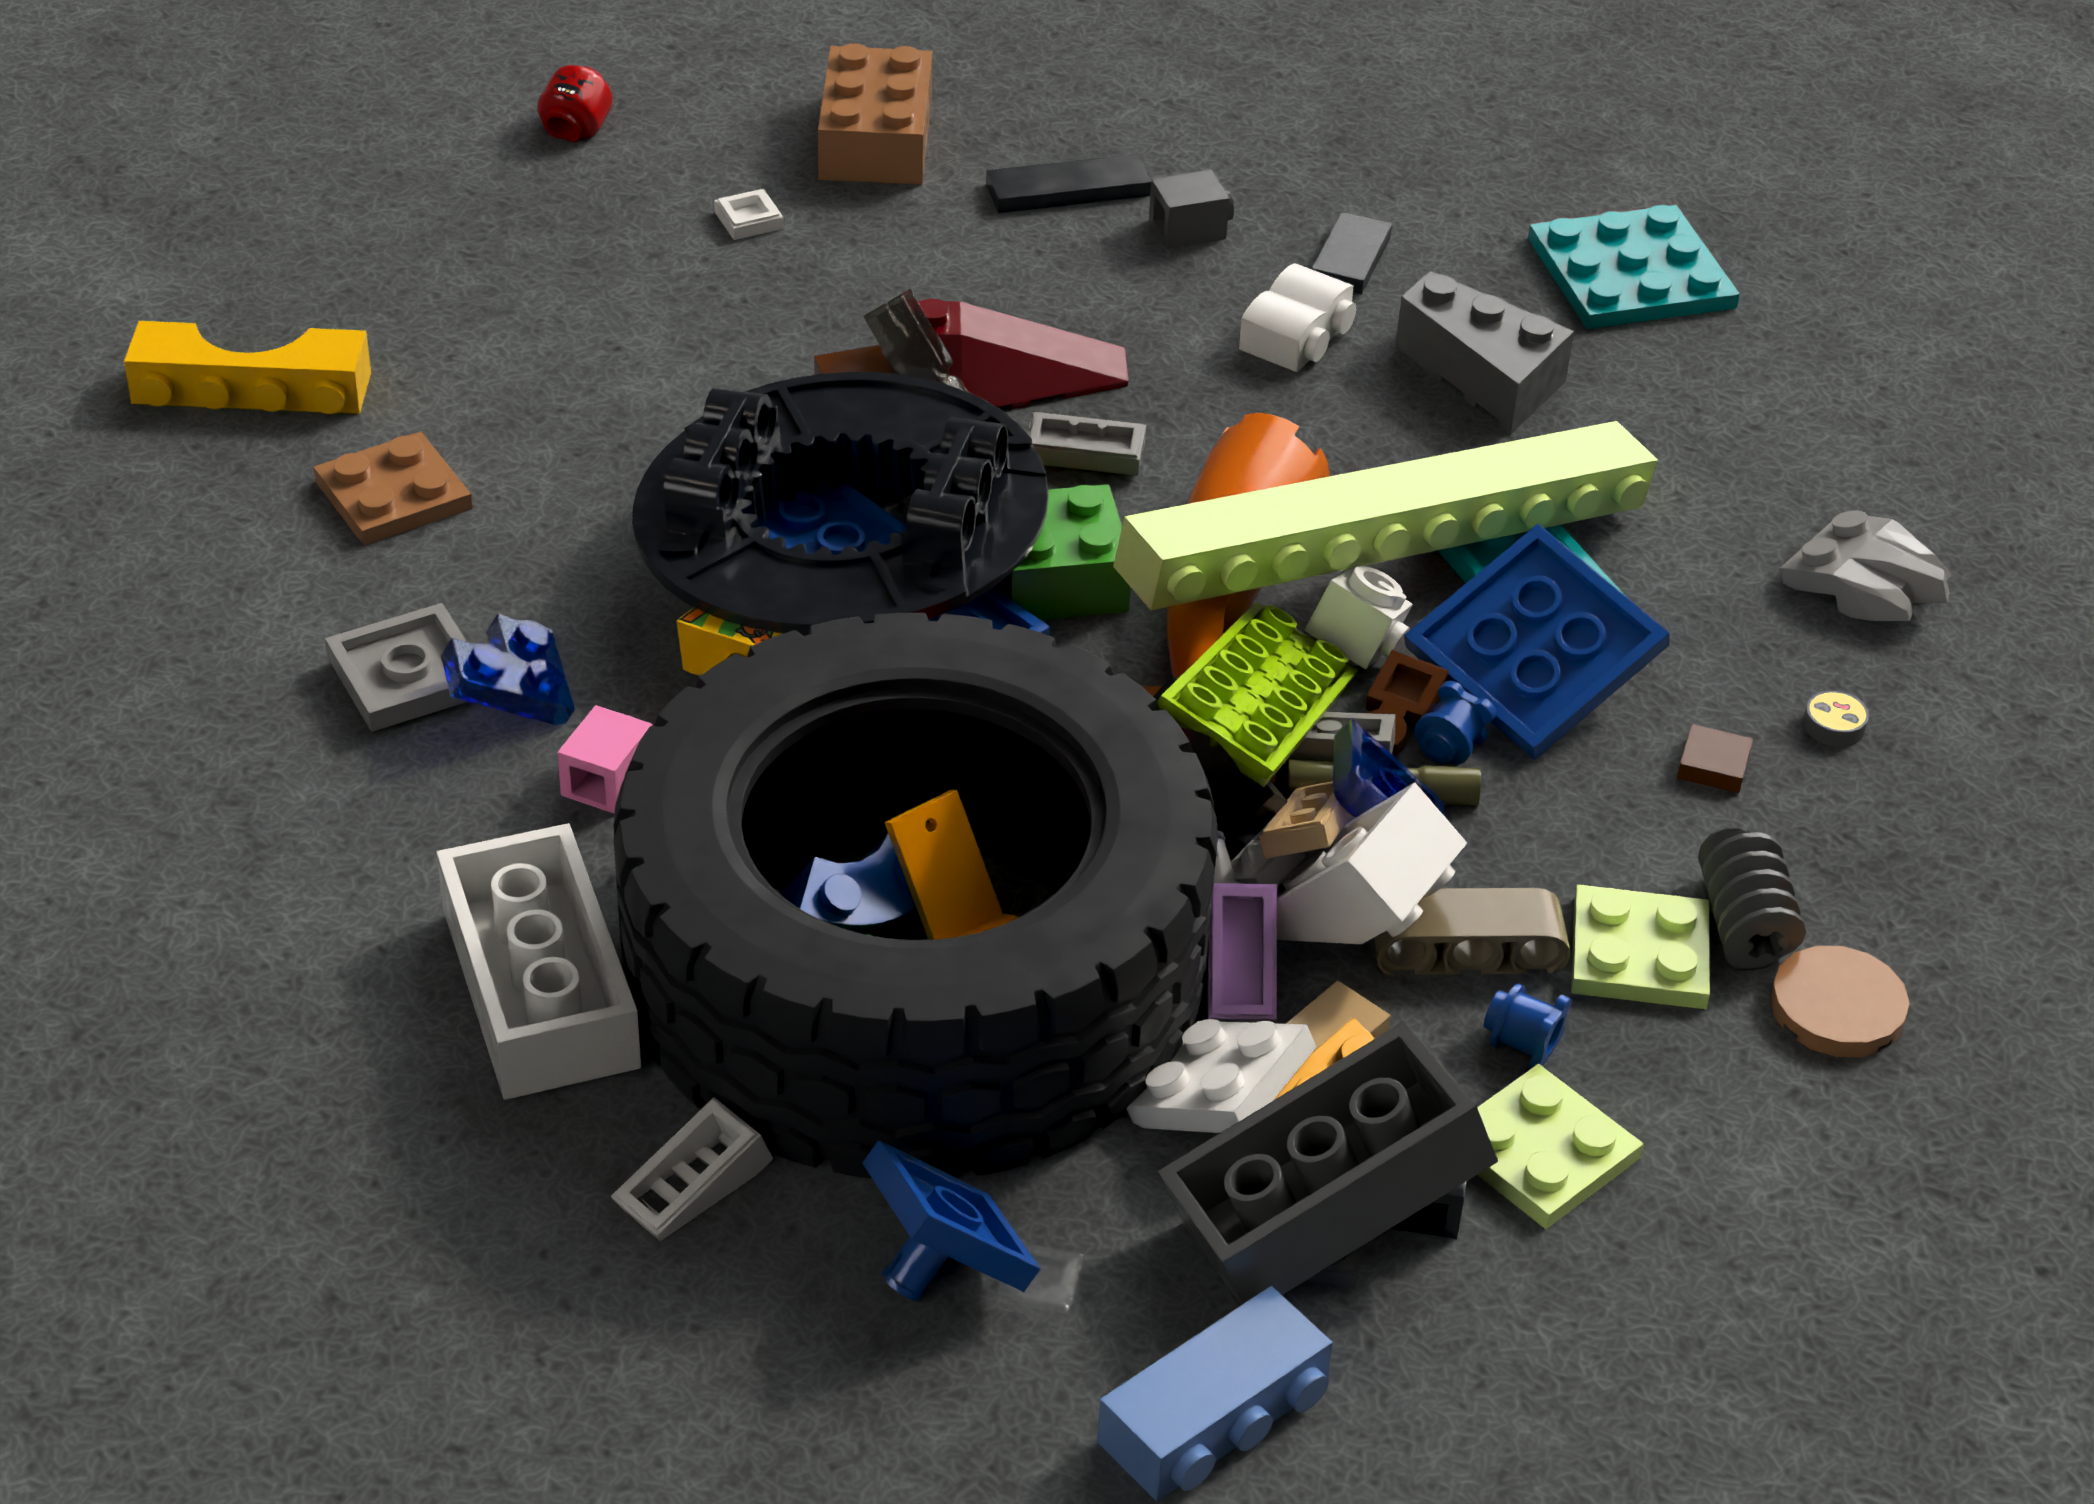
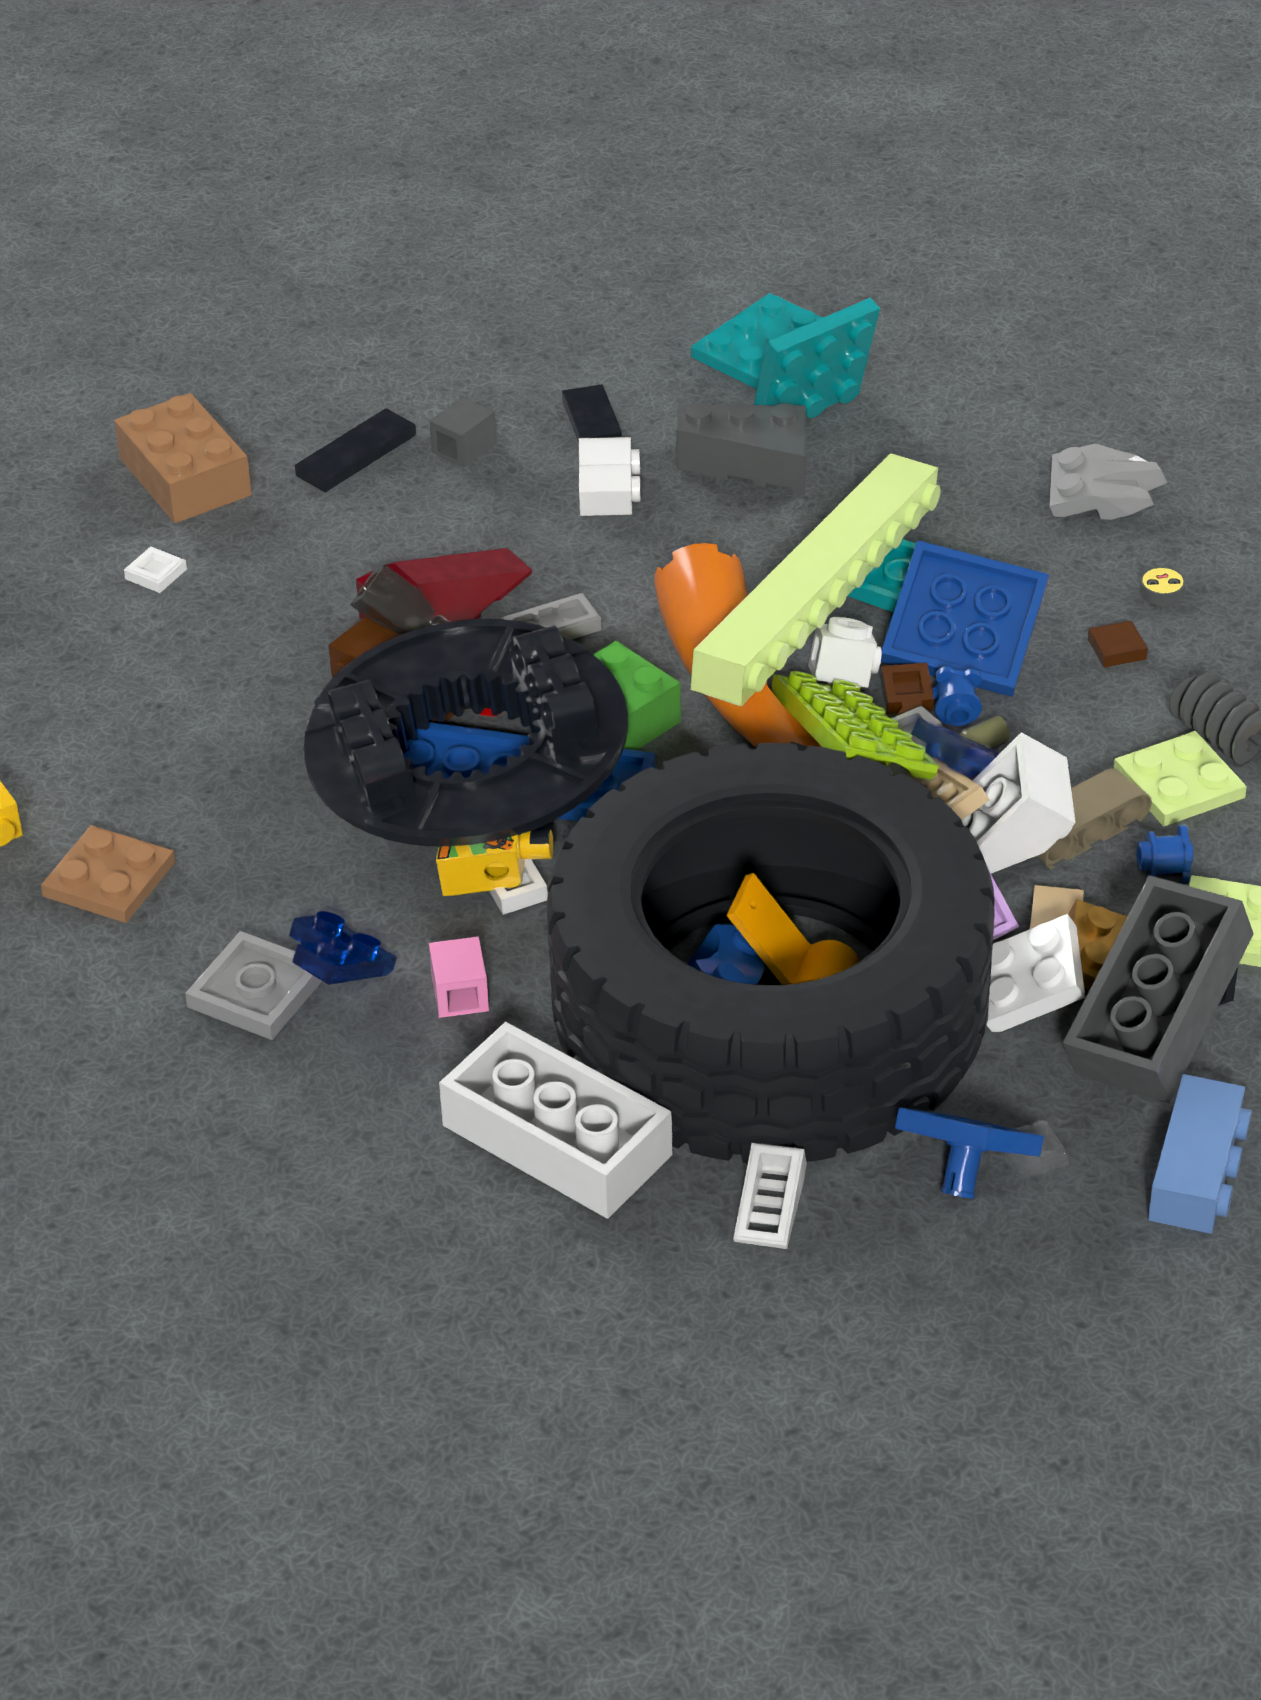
camera: 30 degrees left, 0 degrees up
(1621, 287) = (819, 360): none -> teal plate

